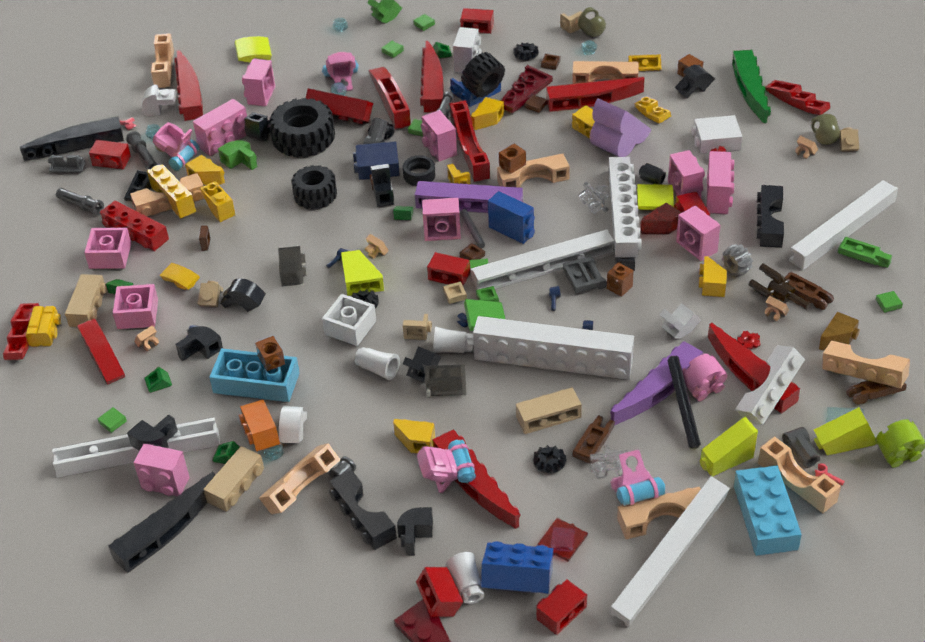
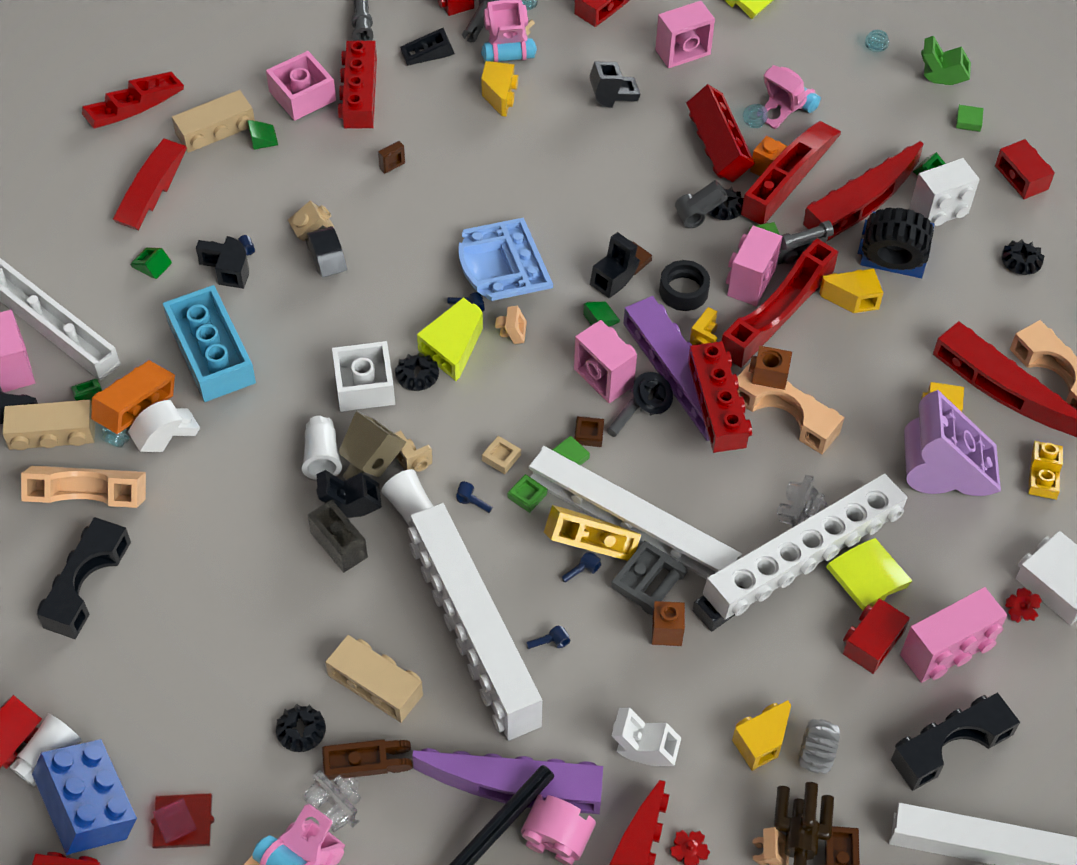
camera: 50 degrees right, 10 degrees up
(43, 326) = (149, 111): yellow brick -> none
(112, 419) = (65, 260): bright green tile -> none
(135, 306) = (232, 168): bright pink brick -> none
(147, 336) = (199, 207): light nougat tile -> none
(151, 202) = (456, 93): light nougat arch -> none
(158, 435) = (37, 310): black brick -> none
(178, 196) = (422, 91): yellow arch -> none
(180, 276) = (314, 176): yellow slope -> none
(218, 201) = (457, 130): yellow slope -> none
(220, 126) = (571, 49): bright pink brick -> none
(237, 152) = (553, 94): bright green brick -> none
(270, 353) = (227, 334): dark orange brick -> none
(291, 266) = (412, 265): clear smoke brick -> none
(302, 127) = (652, 102): black tyre -> none
(314, 187) = (555, 216): black tyre -> none
(329, 228) = (503, 260): none -> light blue slope
(345, 465) = (133, 519): dark grey bush -> none
(373, 155) = (663, 231): dark blue brick -> none
(375, 95) = (765, 154): none -> orange brick
(392, 49) = (885, 119): bright green tile -> none
(401, 337) = (369, 446): none -> dark tan torso
(414, 434) = (232, 562): yellow slope -> none
(414, 524) = (90, 642): black brick -> none
(447, 464) = (185, 619): bright pink piece -> none
(448, 269) = (534, 423): red brick -> none
(475, 215) = (662, 393): none -> black gear
(482, 308) = (484, 512): bright green tile -> none
(483, 488) = (208, 659): red slope -> none
(511, 217) = (671, 432): blue brick -> none
(523, 188) = (718, 397): none -> red brick
(528, 84) = (952, 301): dark red wing -> none
(536, 103) = (928, 329): reddish brown tile -> none
(539, 281) = (590, 533): none -> yellow slope
(550, 61) = (1030, 296): reddish brown tile -> none
(652, 174) = (908, 544): black brick -> none
(660, 221) = (824, 608): clear red slope -> none
(685, 173) = (930, 584): bright pink brick -> none
(698, 233) = (828, 667): bright pink brick -> none

